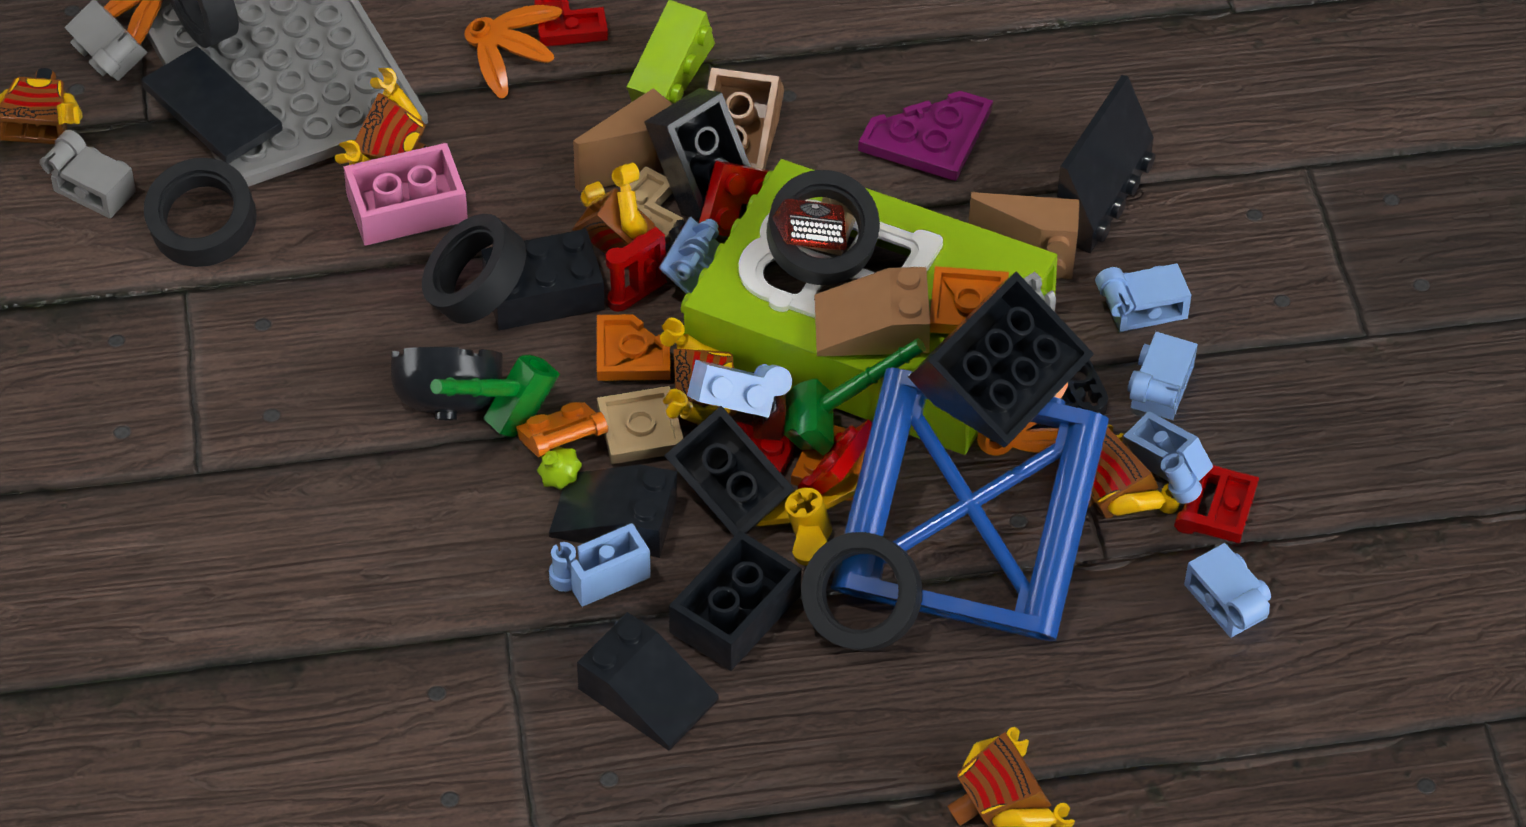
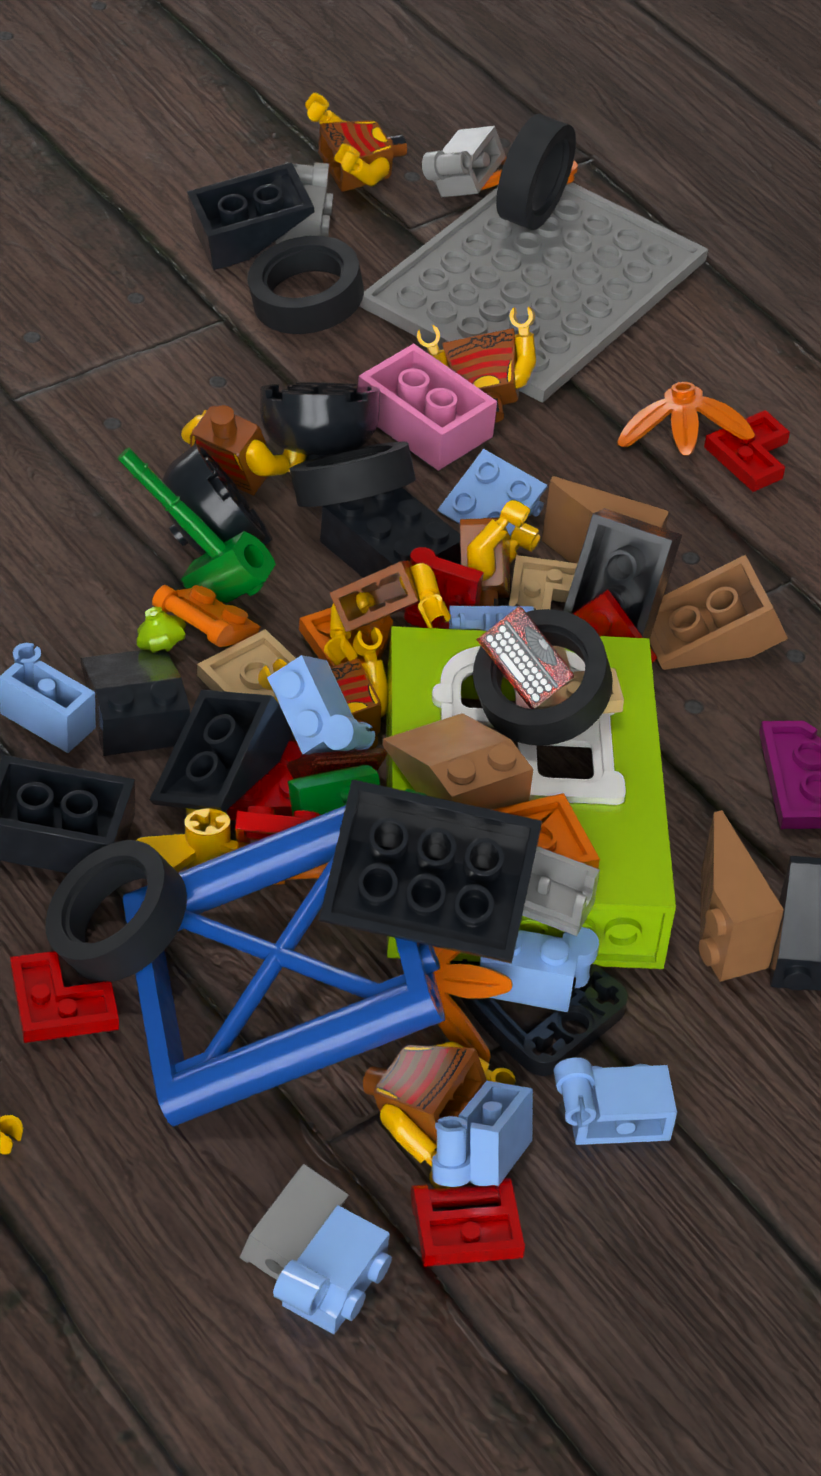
camera: 60 degrees right, 5 degrees down
(90, 211) = (248, 213): none -> black slope
(212, 105) = (438, 248): black tile -> none
(373, 338) = (238, 447): none -> torso
(386, 261) = (319, 416): none -> black cylinder
(529, 197) = (488, 487): none -> light blue hinge
(637, 299) = (380, 597): none -> torso
(673, 52) = (766, 528): lime wedge -> none
(906, 677) = (56, 1011): none -> red plate
(1145, 296) = (725, 1045): light blue hinge -> none
(1177, 600) = (292, 1221): none -> light grey hinge

